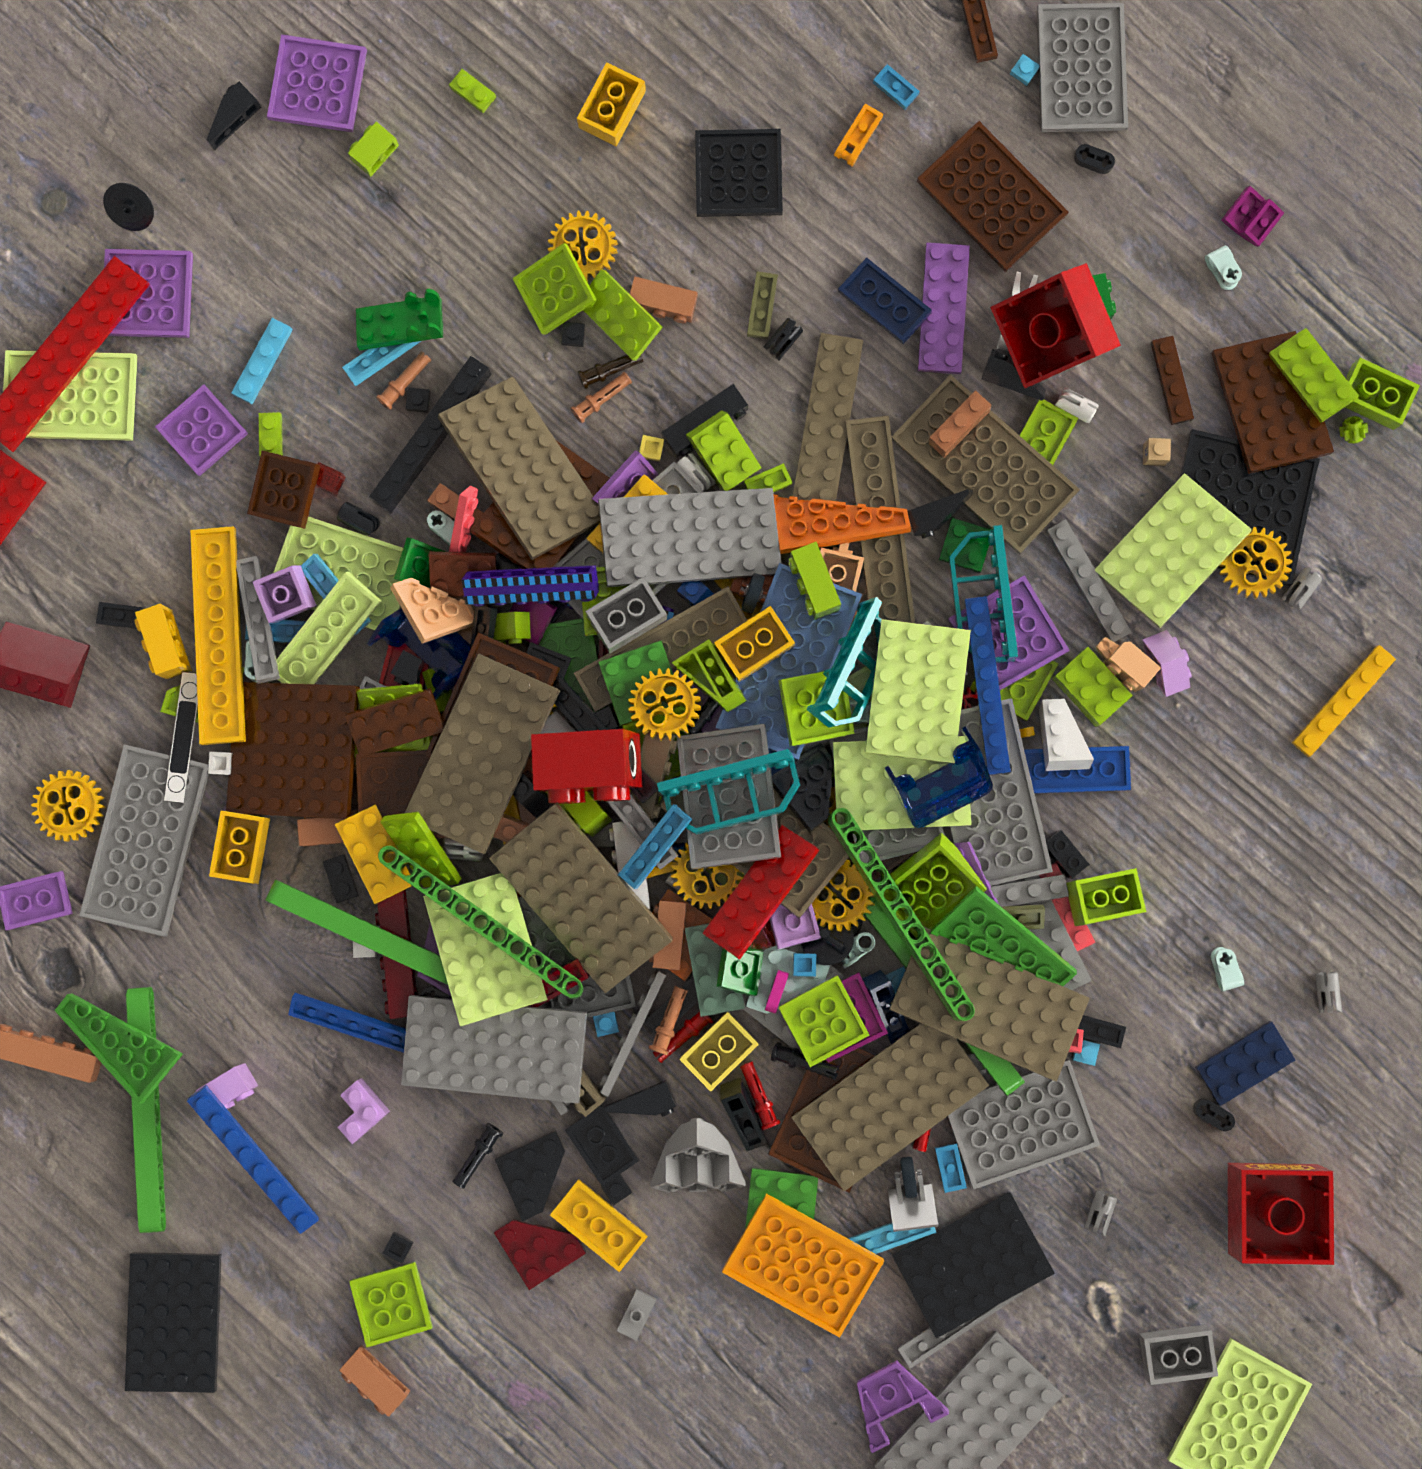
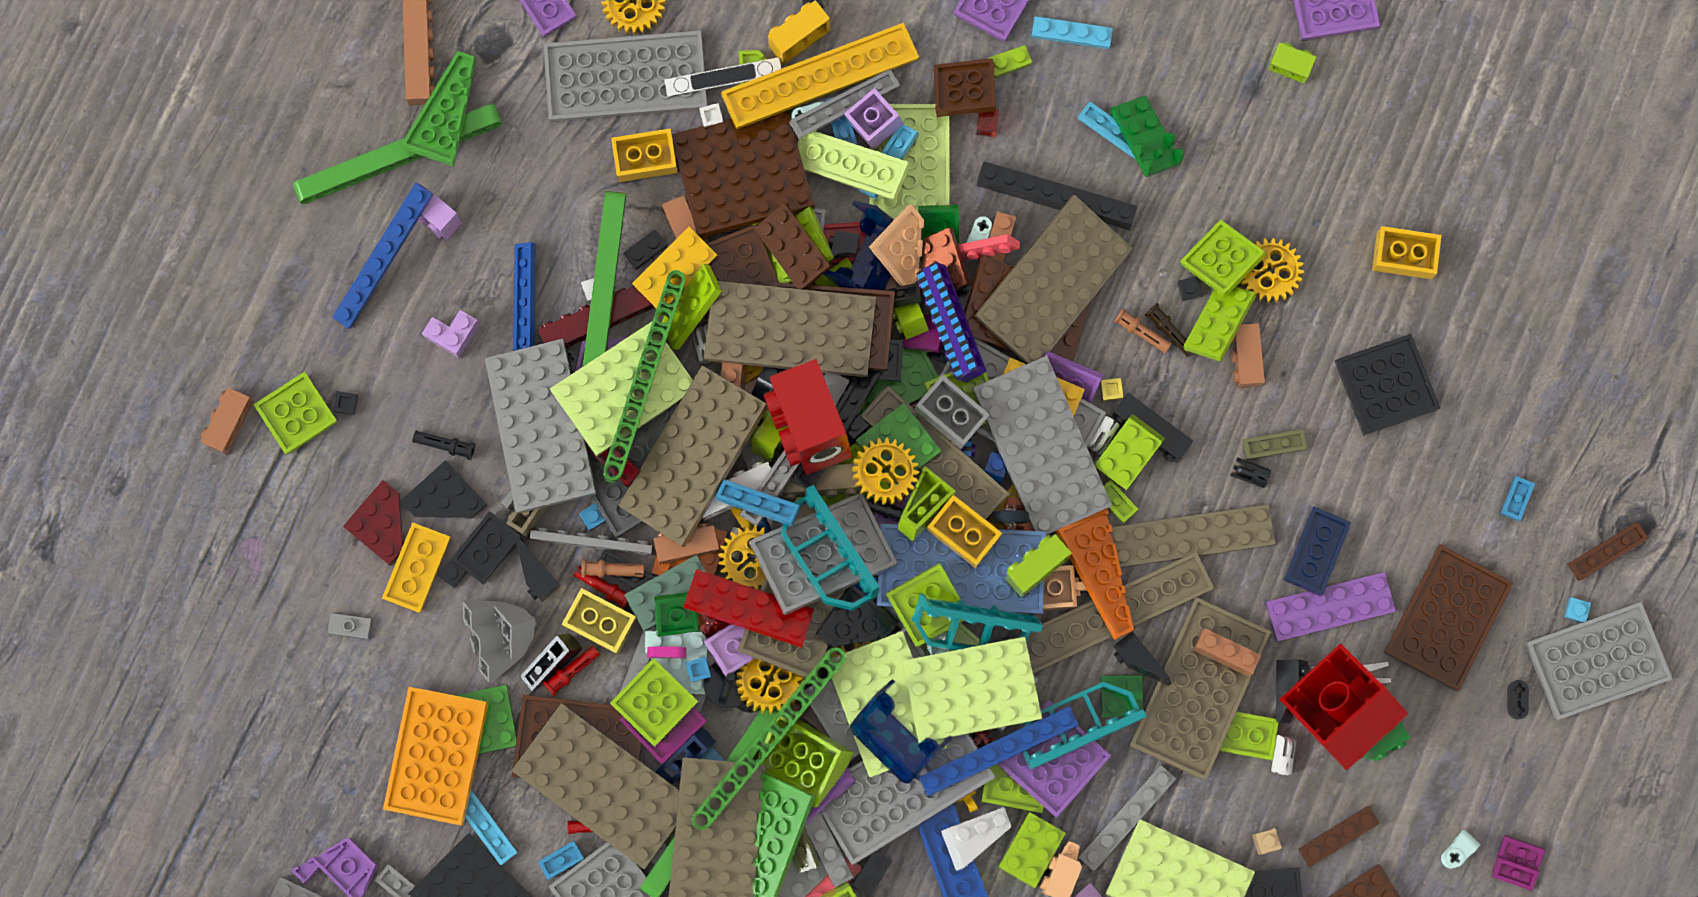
camera: 70 degrees right, 5 degrees down
(173, 1322) = (226, 237): black plate -> none
(357, 519) = (961, 159): black arm -> none
(397, 387) = (1088, 153): nougat pin -> none
(418, 400) = (1084, 175): black plate -> none
(472, 90) = (1376, 130): lime plate -> none
(794, 1058) = (613, 688): black pin -> none
(858, 951) = (726, 714): light aqua piece -> none
(859, 134) = (1461, 479): light orange plate -> none
(913, 1205) = (517, 833): plate -> none

